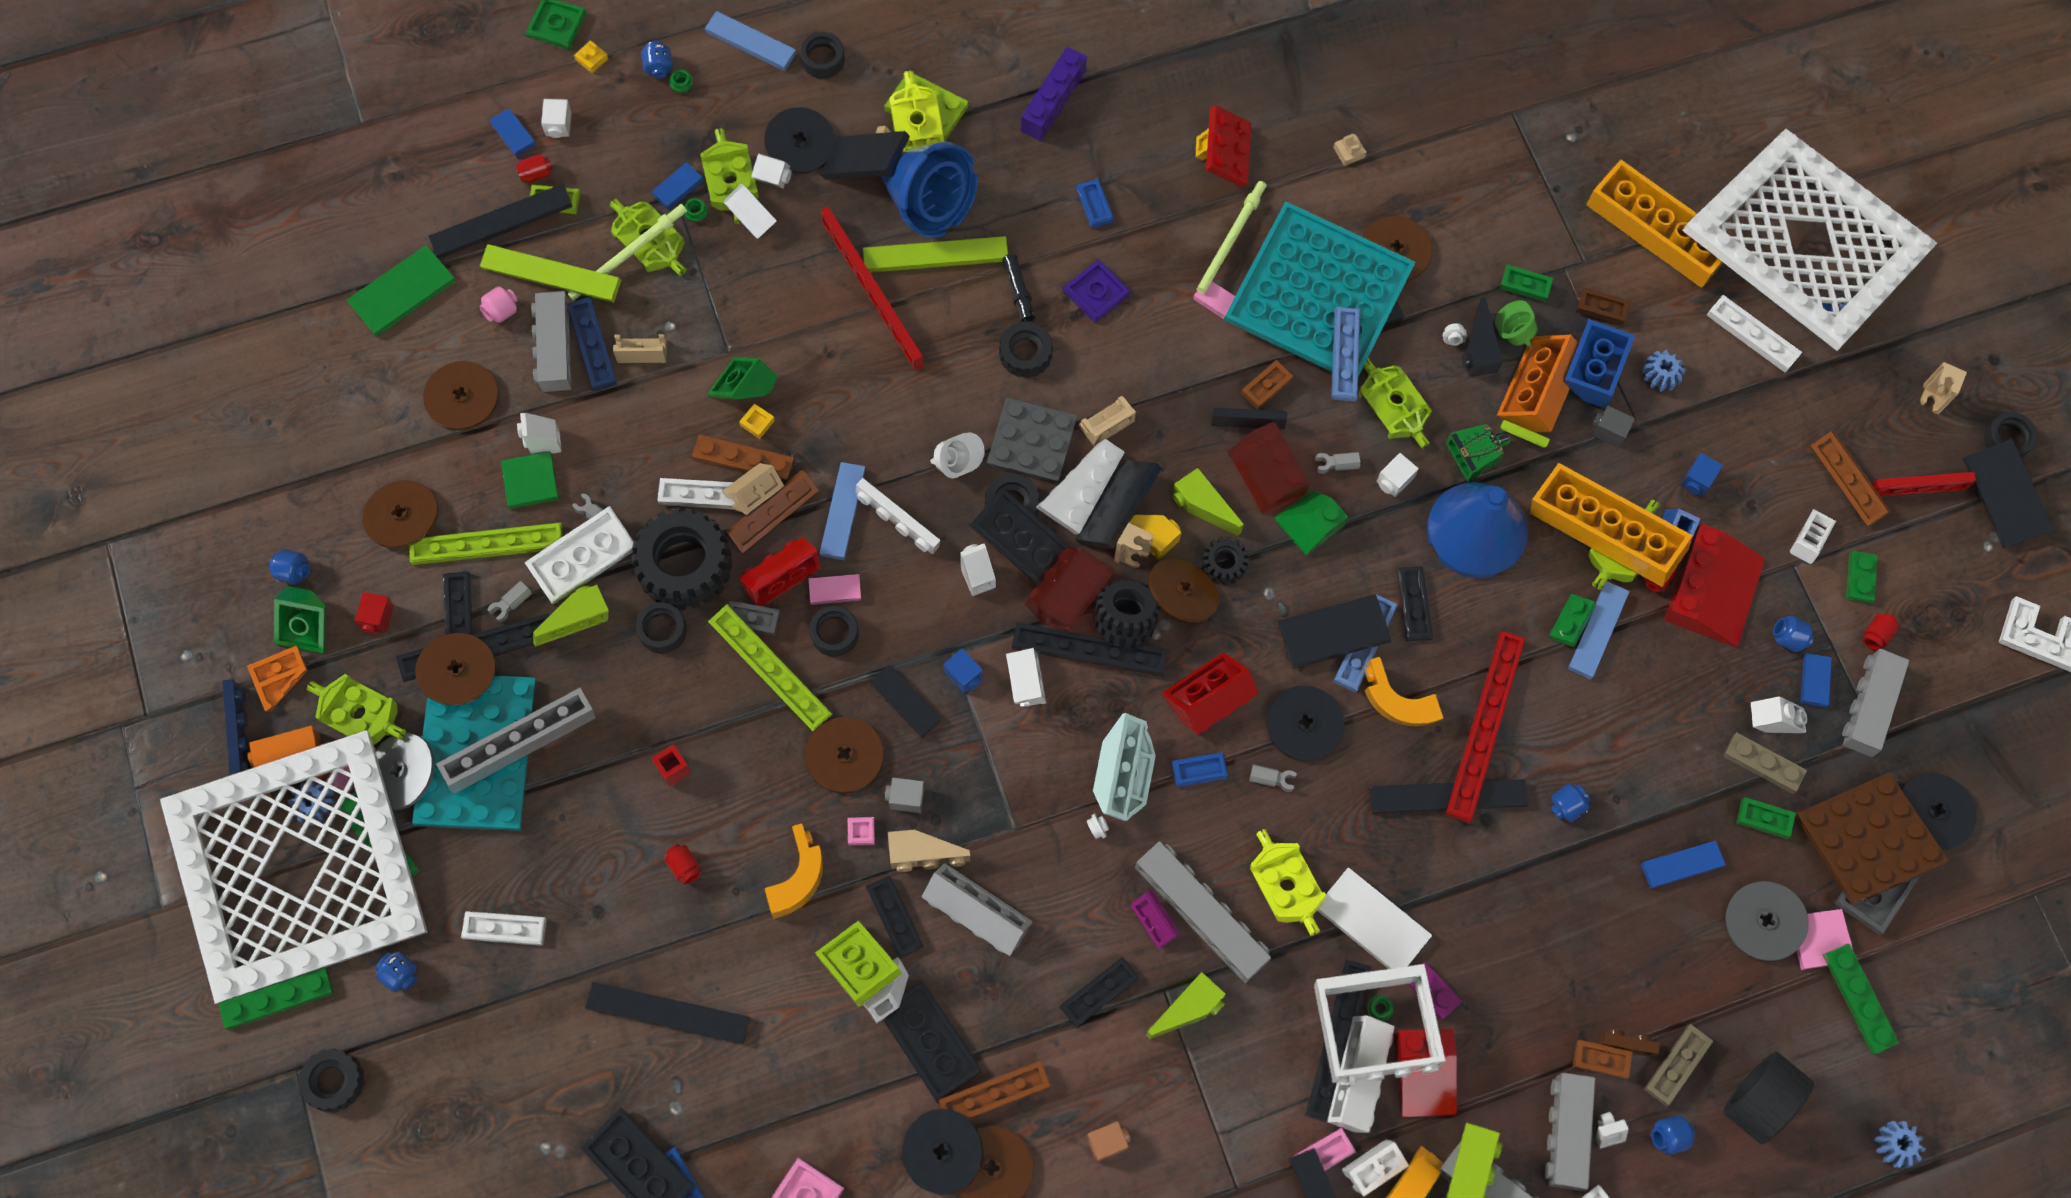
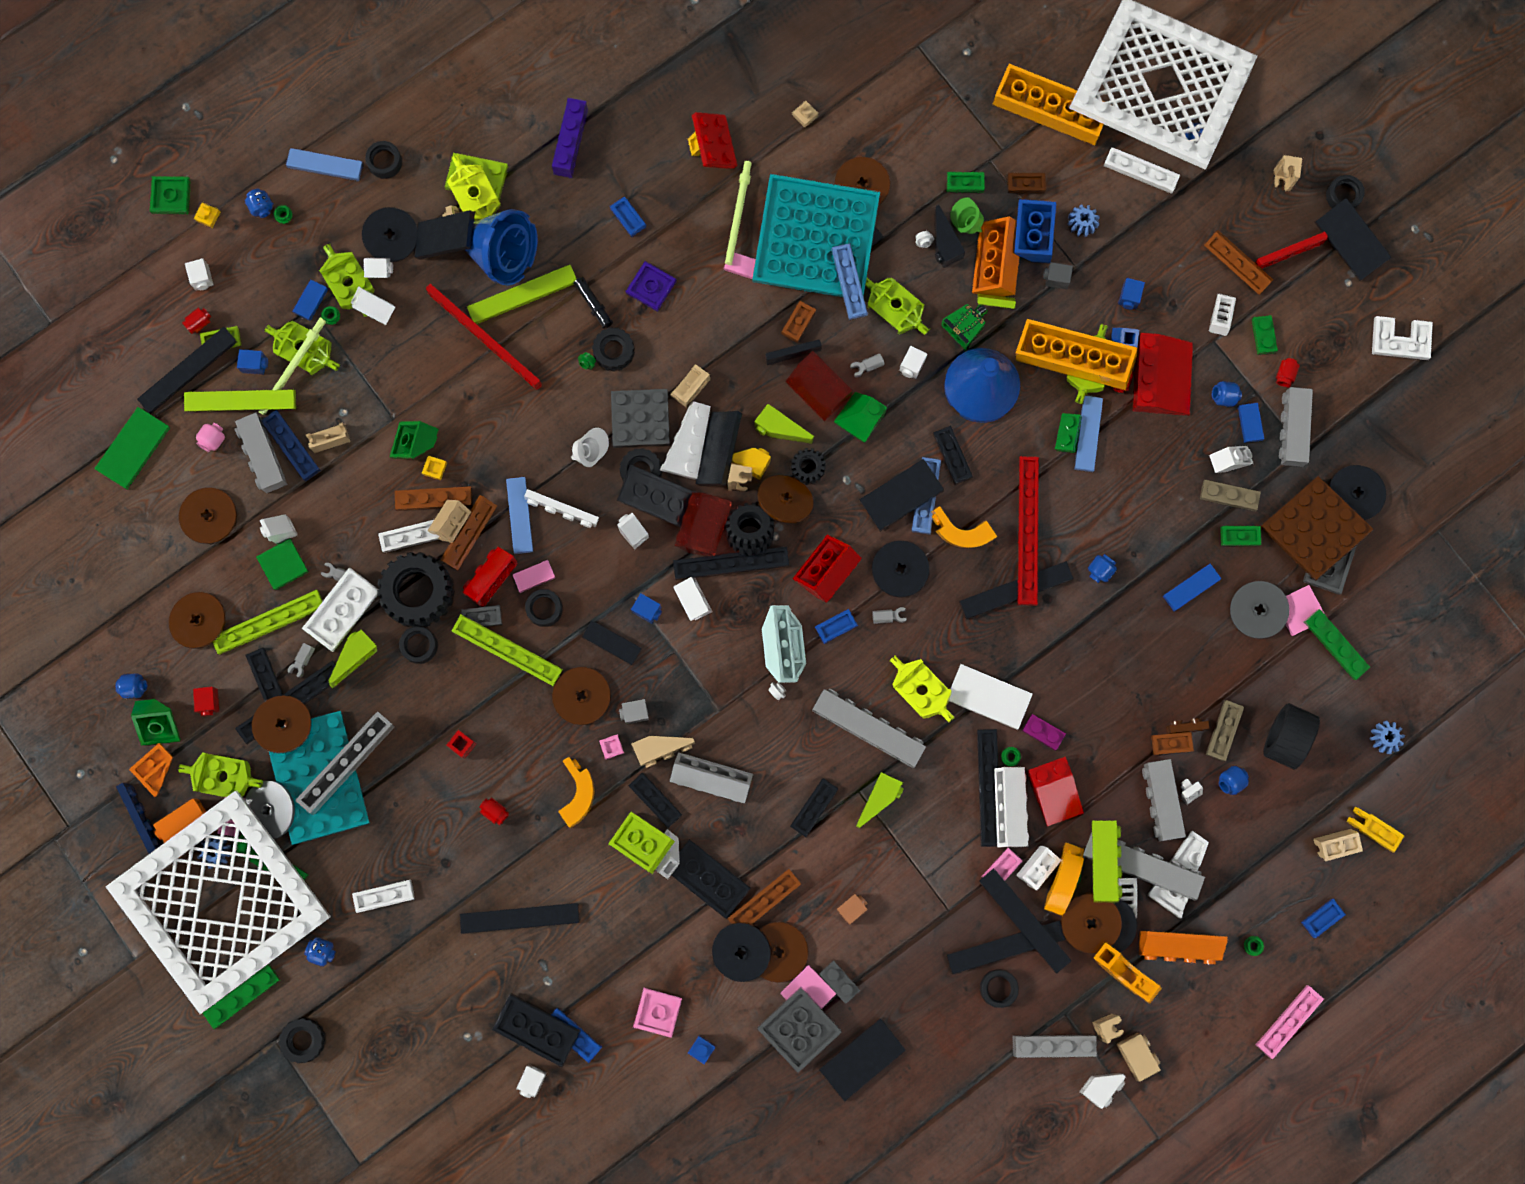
camera: 15 degrees left, 10 degrees up
(512, 132) = (169, 295): blue tile -> none
(581, 234) = (252, 362): none -> blue brick
(988, 353) = (586, 361): none -> green plate
(1155, 919) = (837, 744): magenta plate -> none
(1371, 980) = (1029, 728): white window -> none

